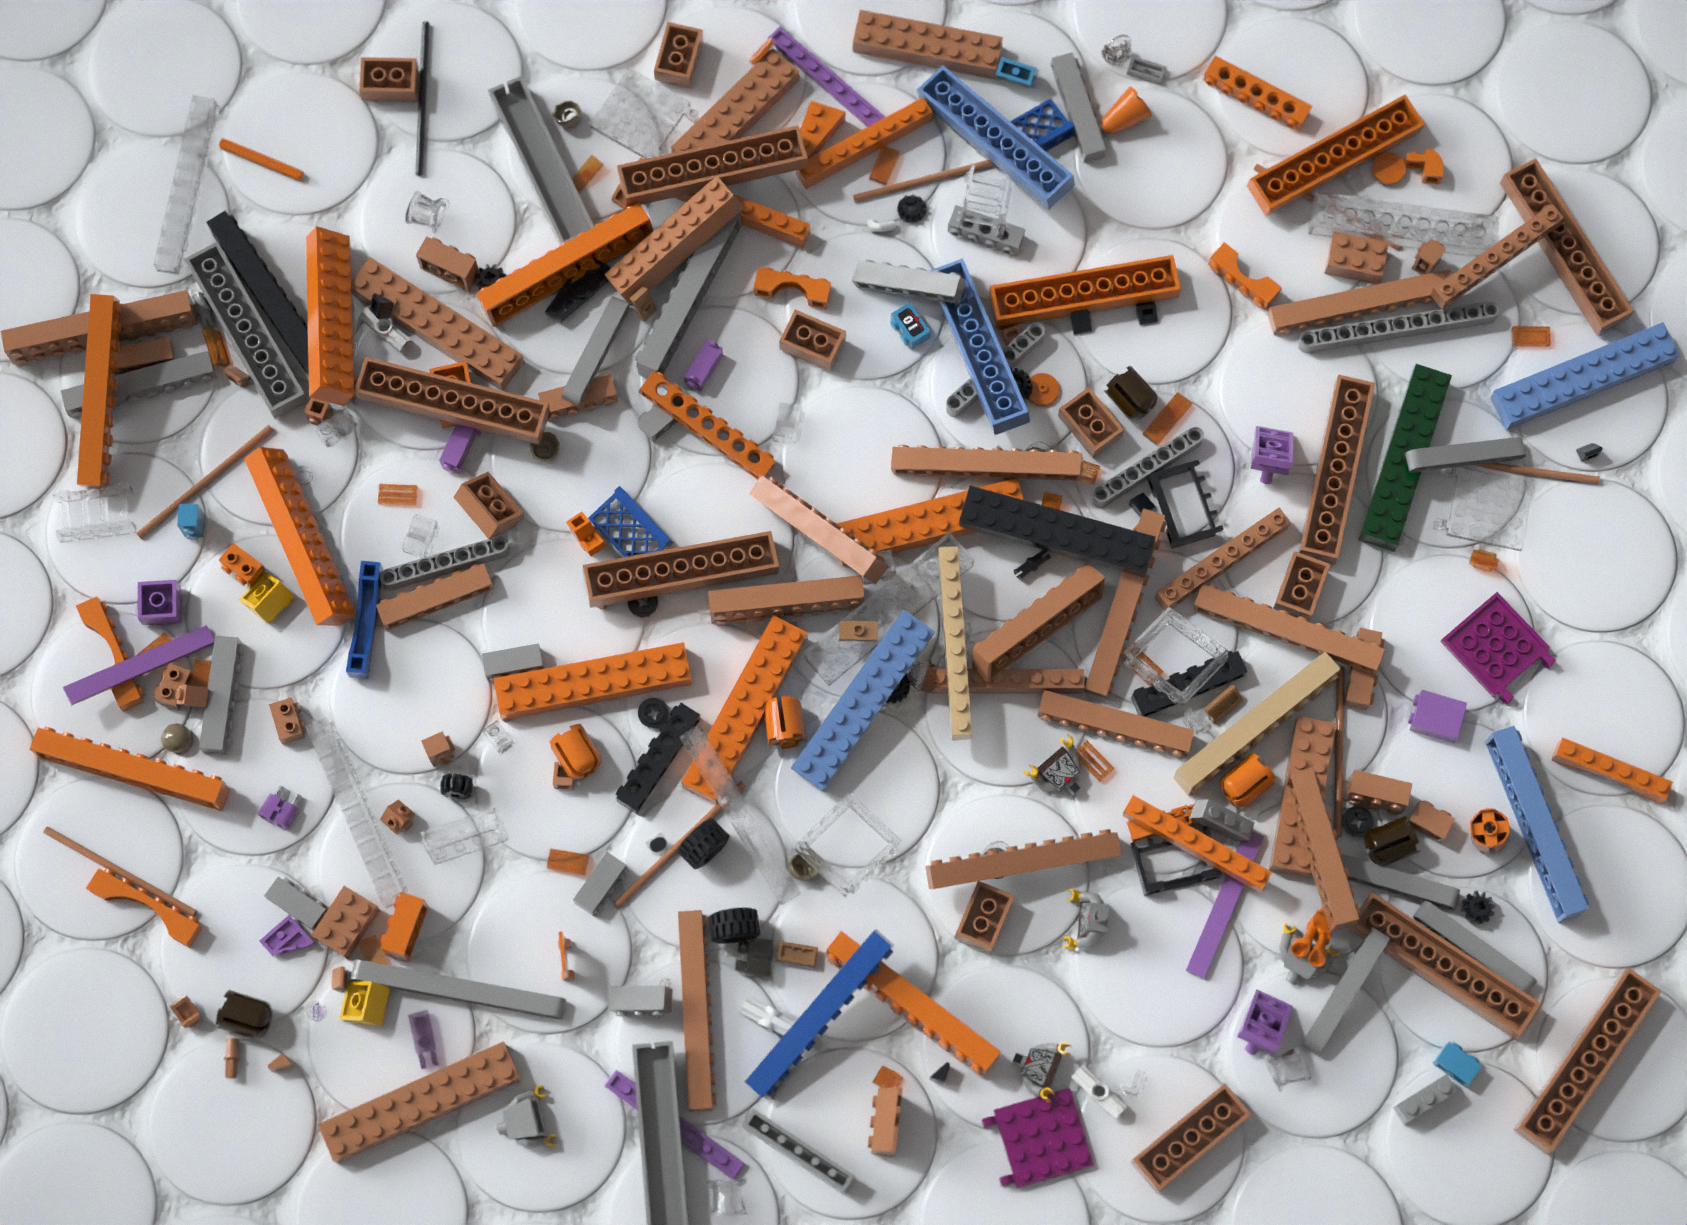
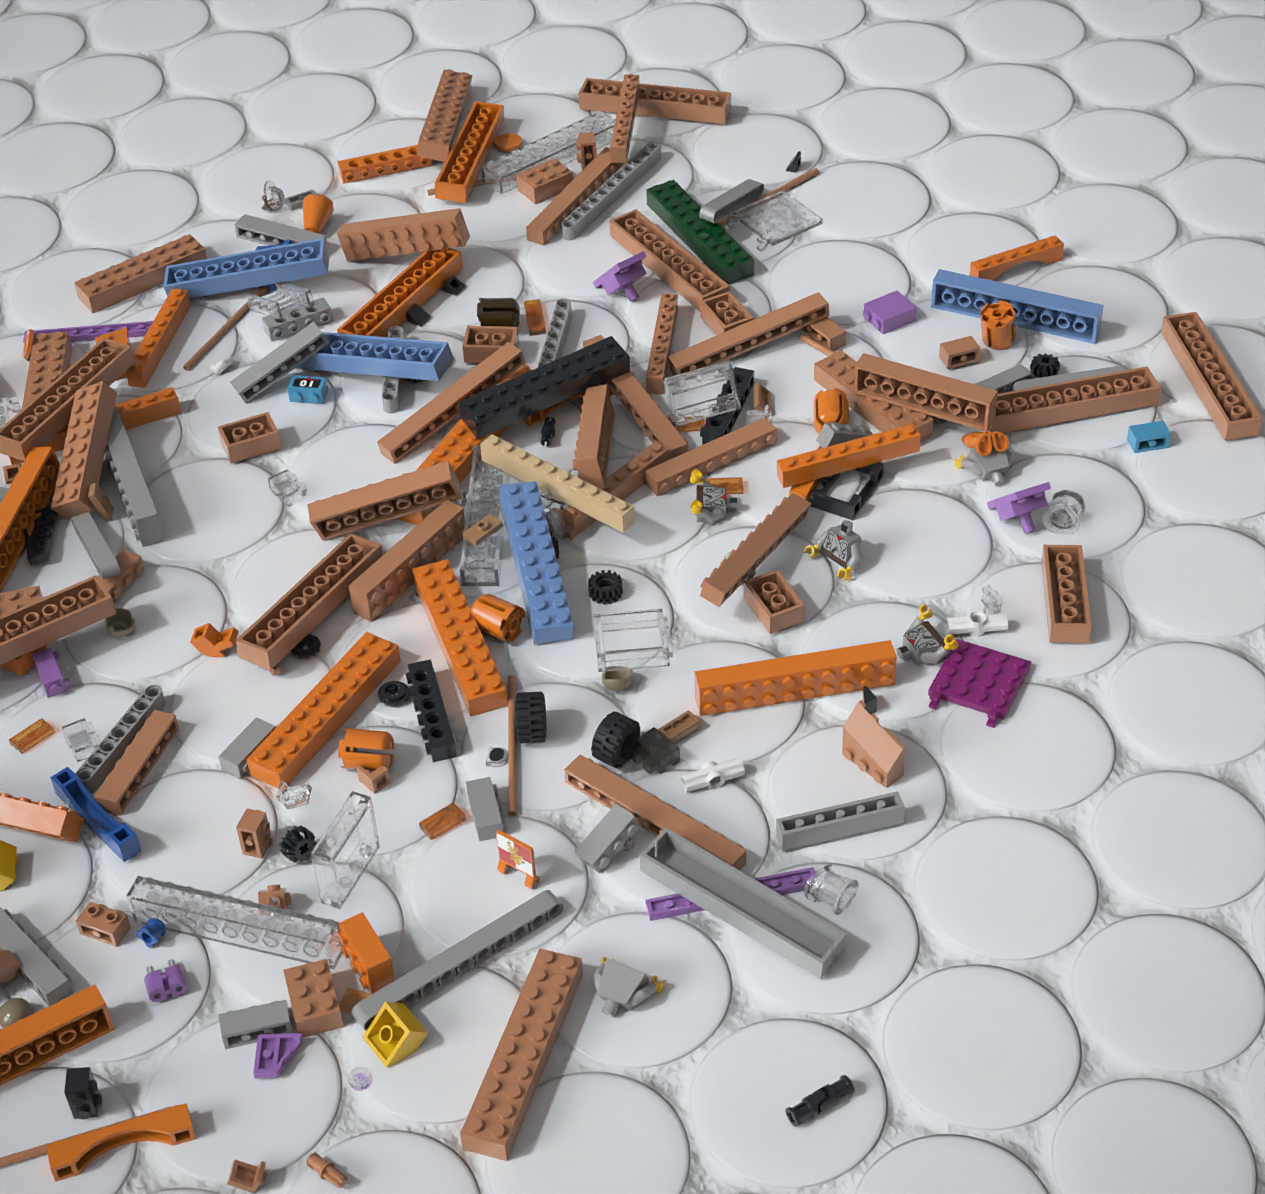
camera: 45 degrees left, 30 degrees down
(150, 851) = (82, 1093): none -> black brick
(244, 1015) = (308, 1136): dark brown cylinder -> none
(280, 1063) = (376, 1133): nougat slope -> none
(308, 760) = (151, 932): none -> blue brick
(339, 978) = (352, 1038): nougat slope -> none
(423, 1036) = (472, 1013): clear purple hinge -> none
(488, 505) = (116, 677): nougat brick -> none
(639, 515) = (238, 603): blue fence -> none
(656, 421) = (190, 545): light grey brick -> none
(703, 365) = (186, 503): medium lavender brick -> none
(710, 436) = (231, 521): orange brick -> none
(740, 815) = (535, 677): clear brick -> none
(770, 282) = (181, 435): orange arch -> none
(819, 1013) = (745, 728): blue brick -> none
(884, 165) = (186, 341): clear orange tile -> none
(887, 1078) = (834, 738): clear orange slope -> none
(894, 781) = (605, 594): none -> black tyre
(913, 216) = (226, 345): black gear -> none
(1017, 72) = (220, 244): dark azure brick -> none
(1150, 226) = (403, 234): none -> nougat brick
(1171, 531) = (572, 343): black hinge -> none
(1221, 912) = (915, 494): medium lavender tile -> none
(1256, 723) = (797, 388): tan brick -> none
(1261, 291) = (508, 230): orange arch -> none
(1345, 991) = (1036, 447): light grey beam -> none
(1364, 84) = (444, 115): none -> nougat brick
(1378, 792) = (916, 352): nougat brick -> none
(1386, 834) = (950, 369): dark brown cylinder -> none
(1425, 1099) = (1159, 464): light grey brick -> none
(1429, 162) = (529, 124): orange brick -> none
(1484, 560) = (809, 238): clear orange brick -> none
(1496, 646) = (874, 264): magenta plate -> none
(1531, 336) = (690, 147): clear orange tile -> none
(1584, 376) = (744, 138): medium blue brick -> none

